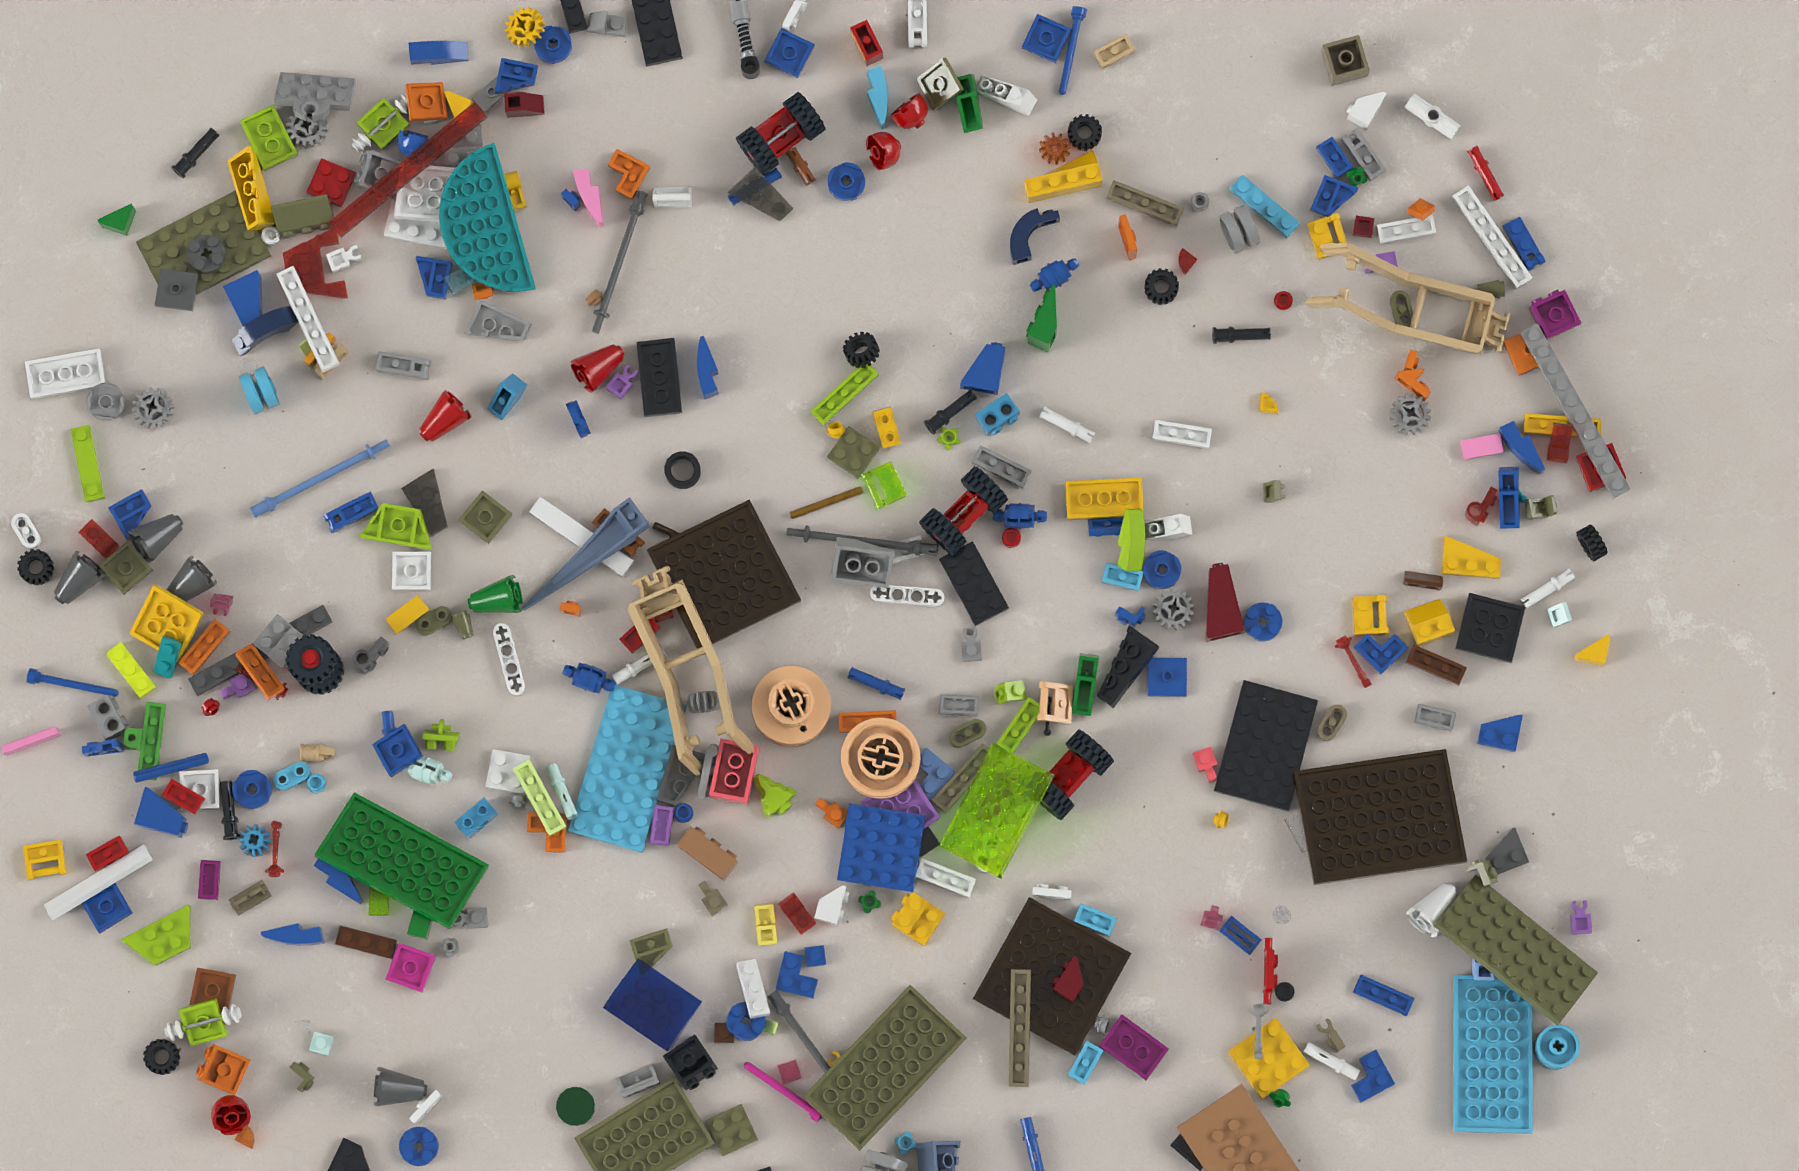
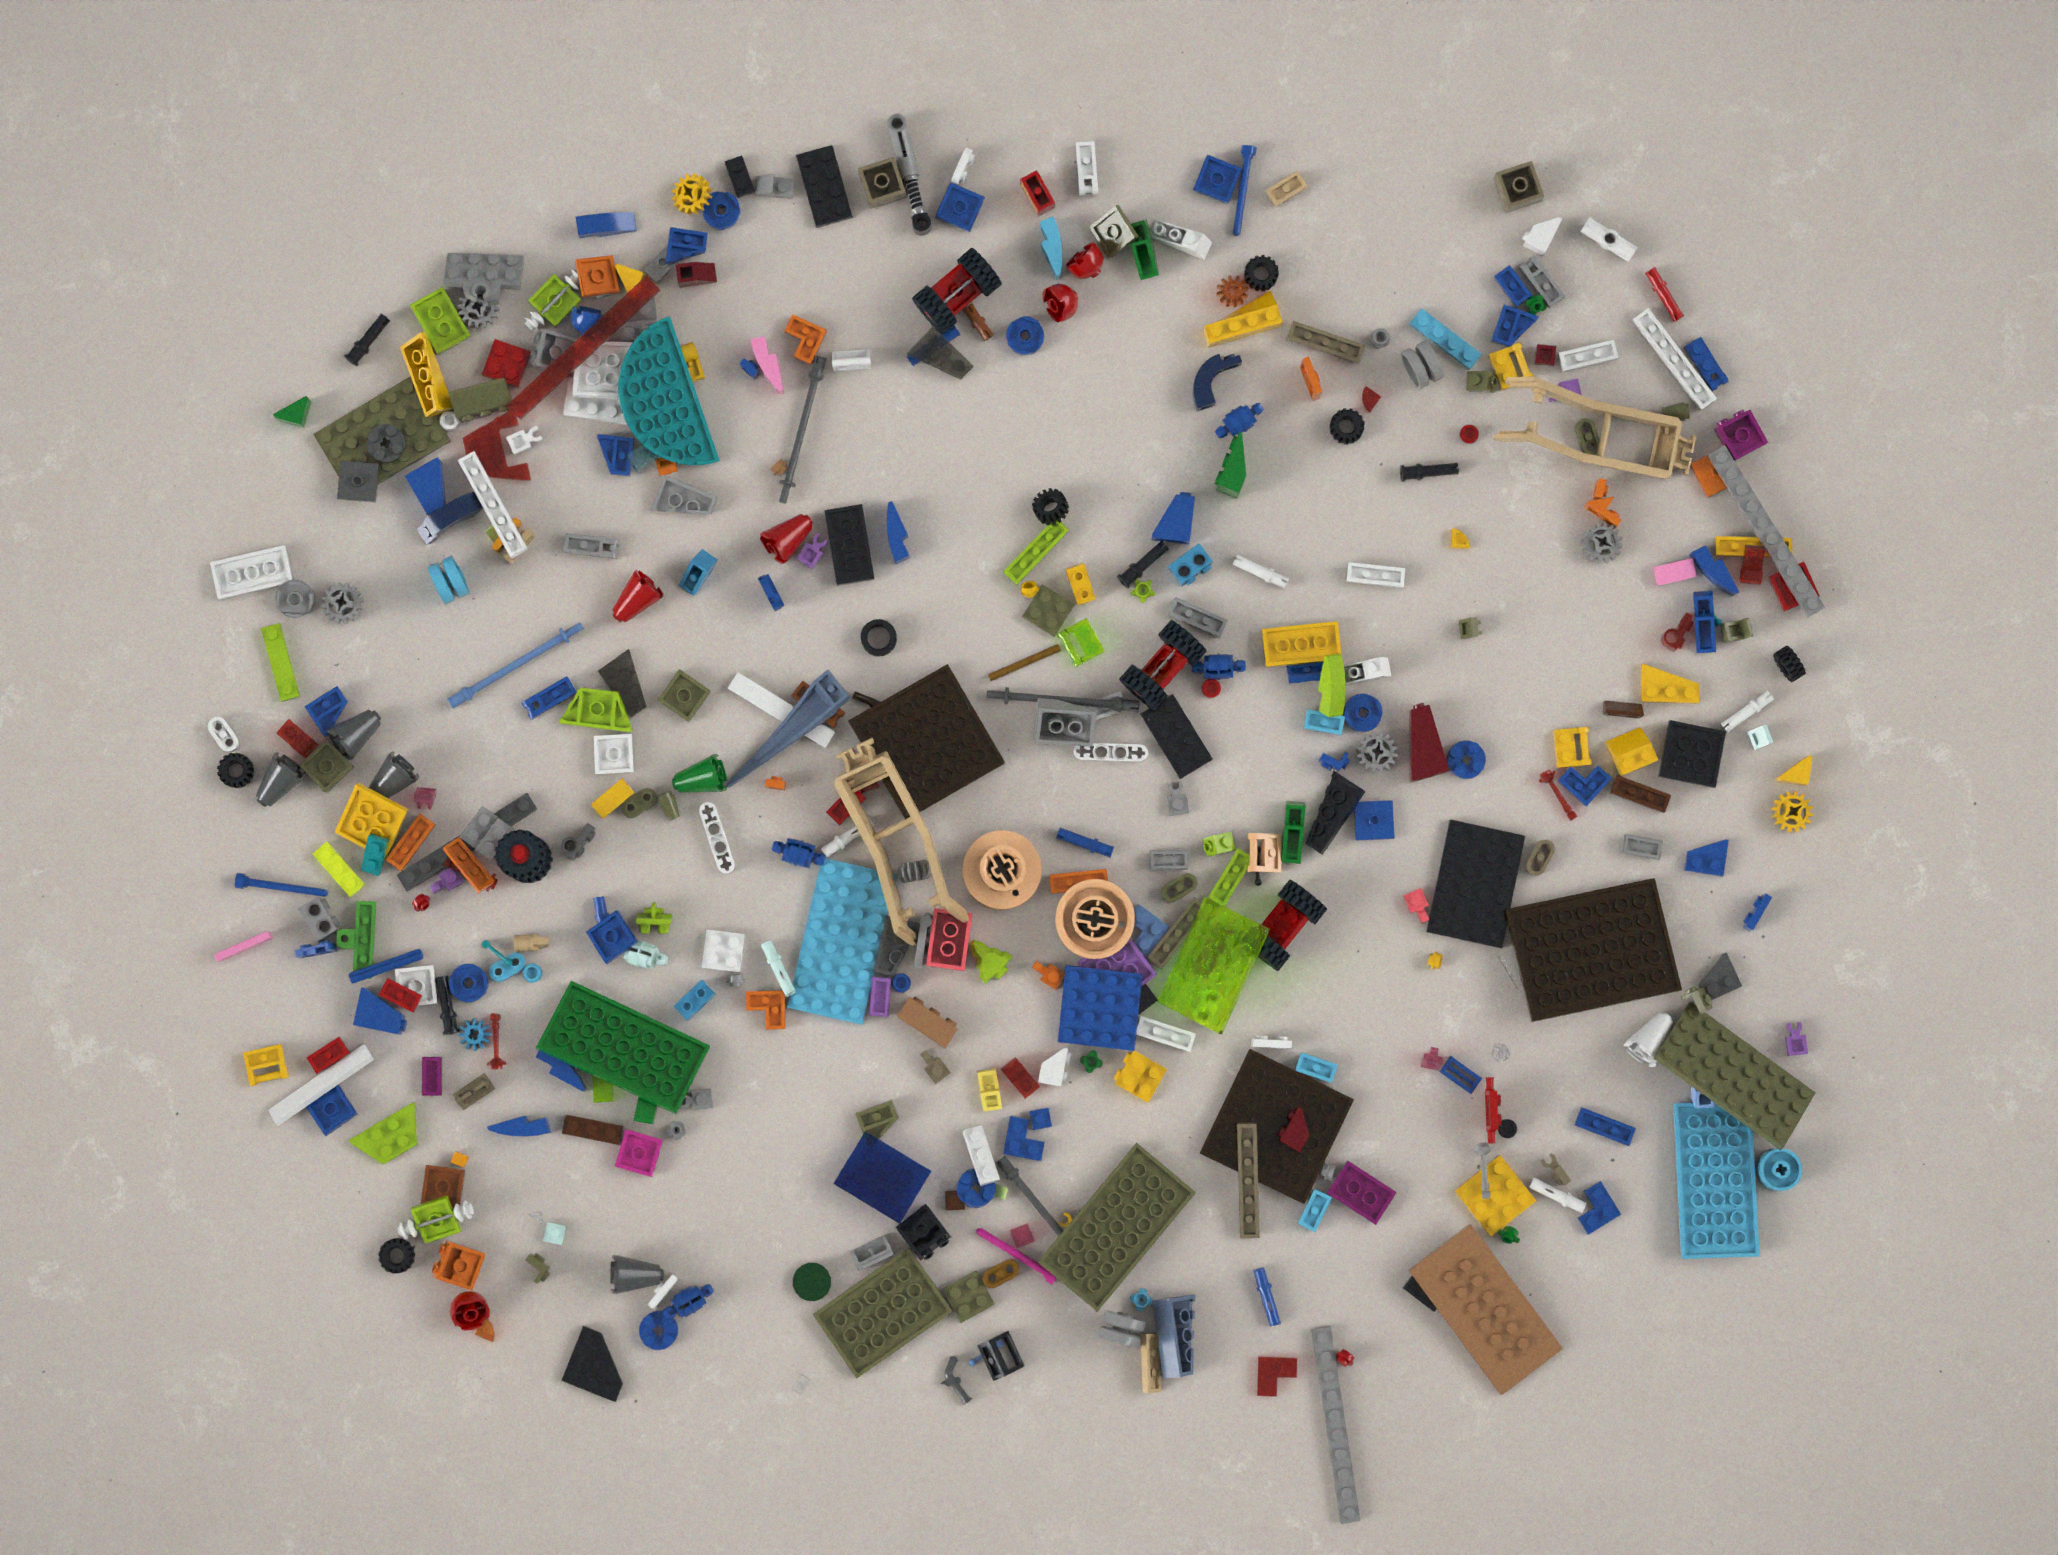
camera: 10 degrees left, 5 degrees up
(231, 964) = (459, 1159): none -> light orange piece
(272, 752) = (486, 944): none -> teal hinge
(447, 1113) = (688, 1301): none -> blue piece
(539, 797) = (756, 976): yellowish green plate -> none
(713, 25) = (882, 182): none -> dark tan brick
(766, 1109) = (1001, 1274): none -> pearl gold plate
(1298, 249) = (1481, 381): none -> olive bracket
(1421, 209) = (1602, 334): orange plate -> none
(1551, 780) = (1760, 904): none -> blue plate
(1583, 684) = (1796, 818): none -> yellow gear

